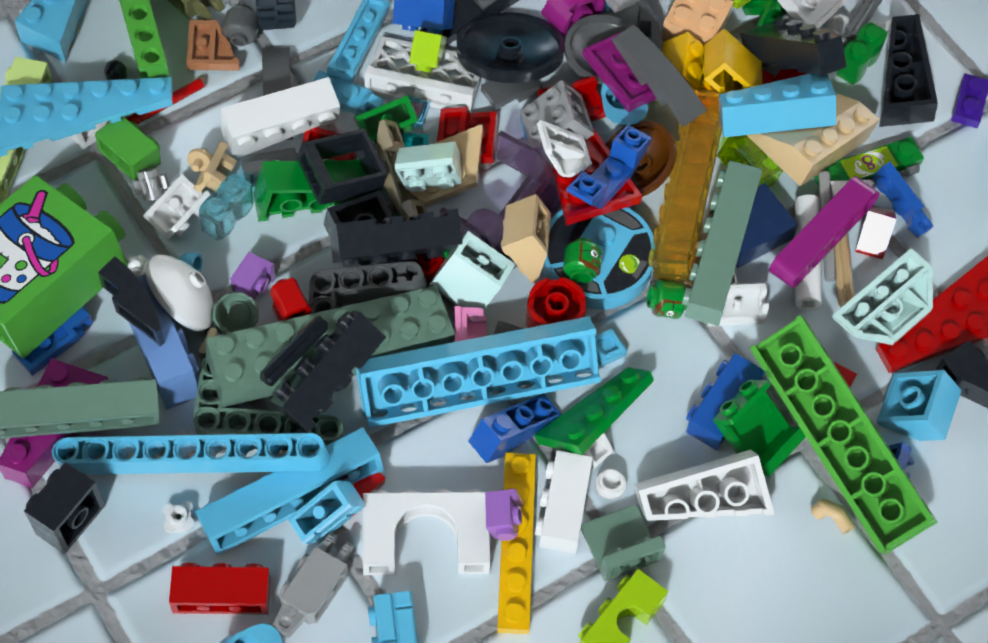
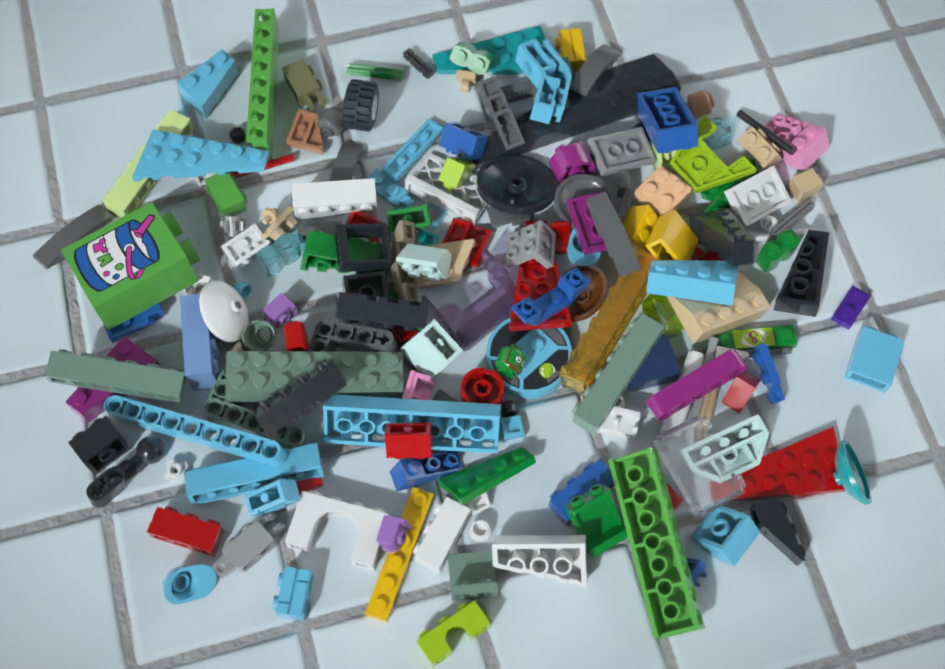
camera: 20 degrees right, 5 degrees up
(131, 299) = (184, 311): black slope -> none
(132, 501) = (148, 451): none -> black beam
(293, 351) = (282, 377): black axle -> none
(487, 390) = (408, 440): none -> red brick
(527, 235) = (475, 331): tan slope -> none
(564, 149) = (525, 273): white slope -> none
(599, 322) = (509, 408): none -> black hinge
(666, 298) = (564, 403): green head -> none
(835, 511) = (633, 595): tan arm -> none
(863, 327) = (698, 466): none -> clear windscreen

